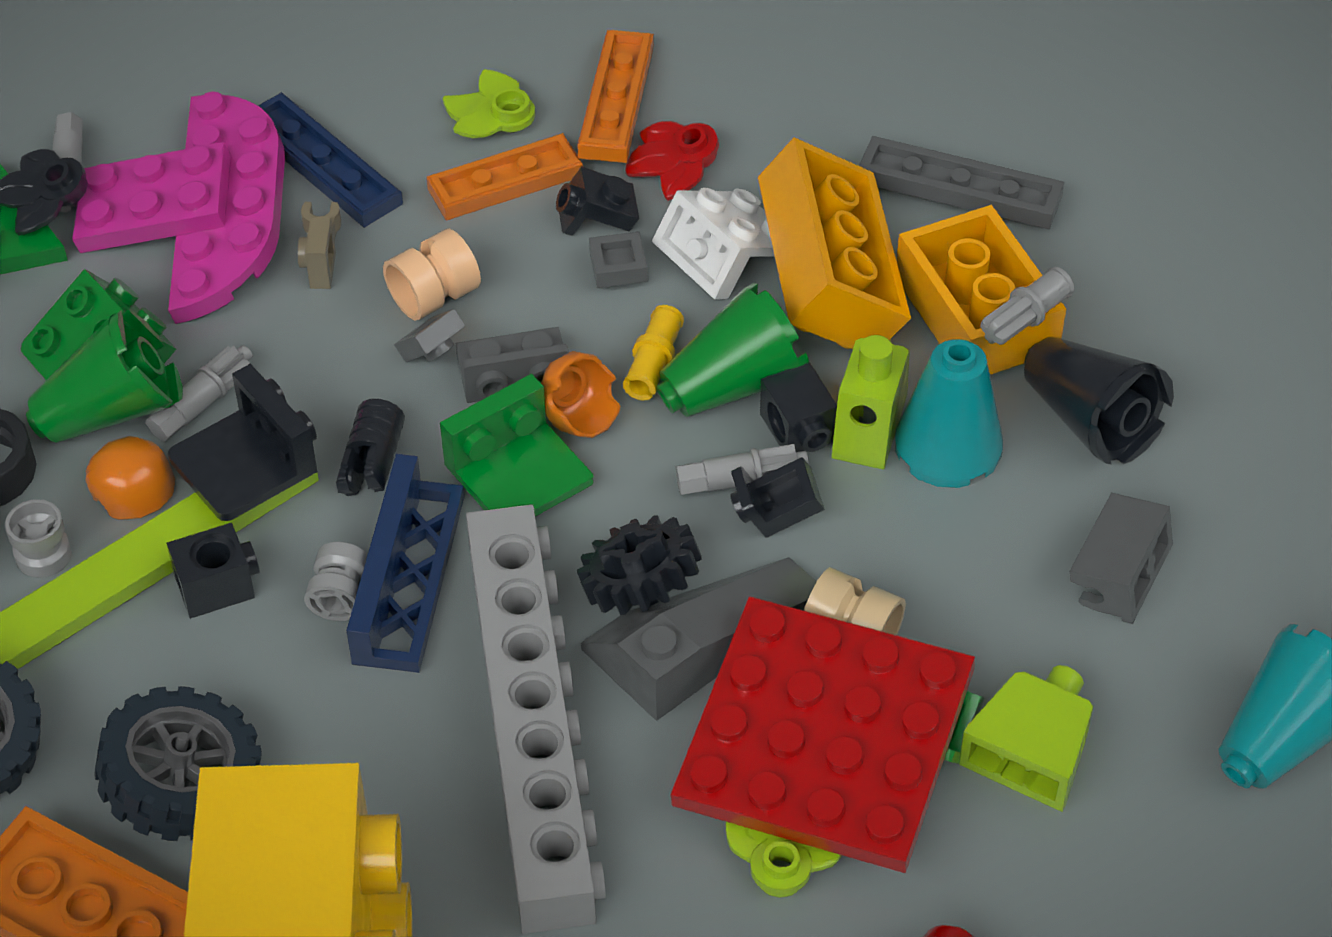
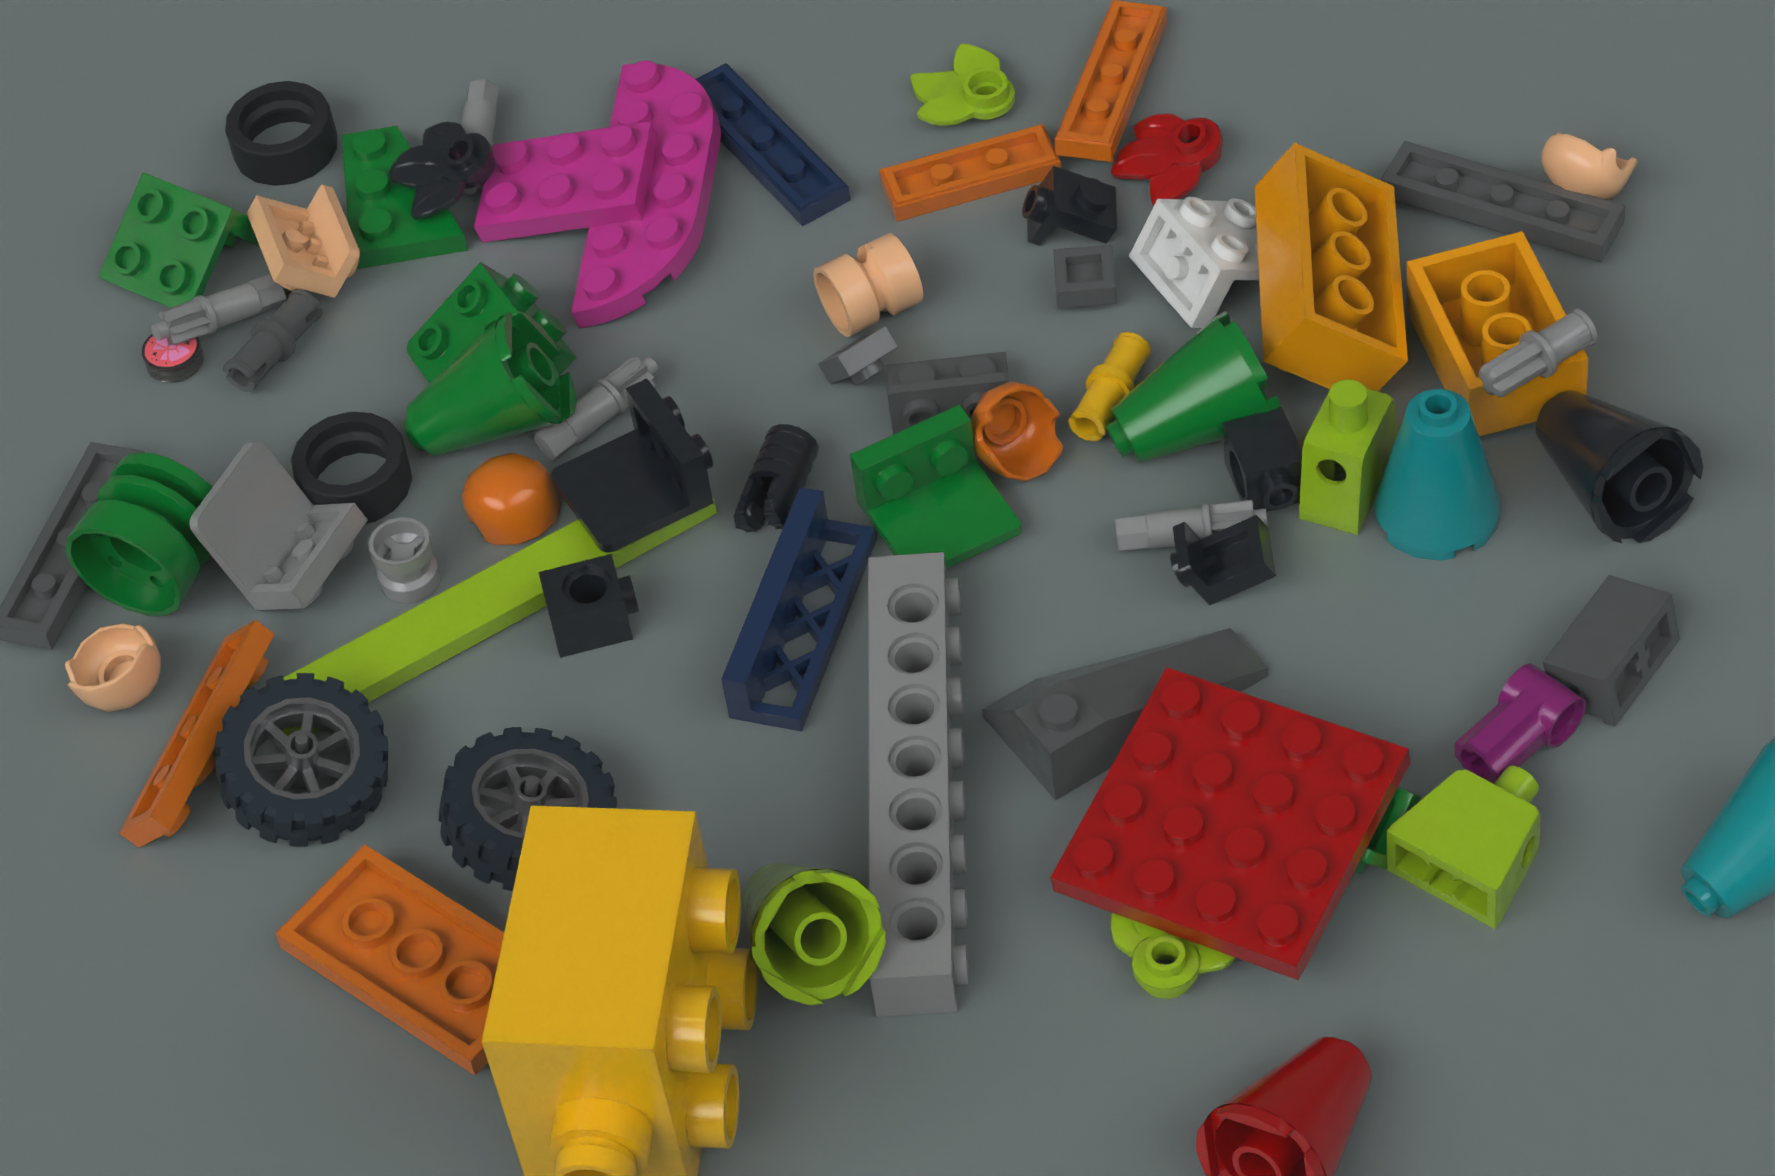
camera: 15 degrees right, 0 degrees up
(318, 249) = (746, 249): dark tan plate -> none
(336, 580) = (720, 620): light grey wheel -> none
(463, 861) = (812, 931): none -> lime cone
(639, 565) = (1055, 626): black gear -> none
(843, 599) = (1281, 679): tan wheel -> none
(1026, 150) = (1584, 168): none -> light nougat hair
(1060, 621) = (1528, 714): none -> magenta piece

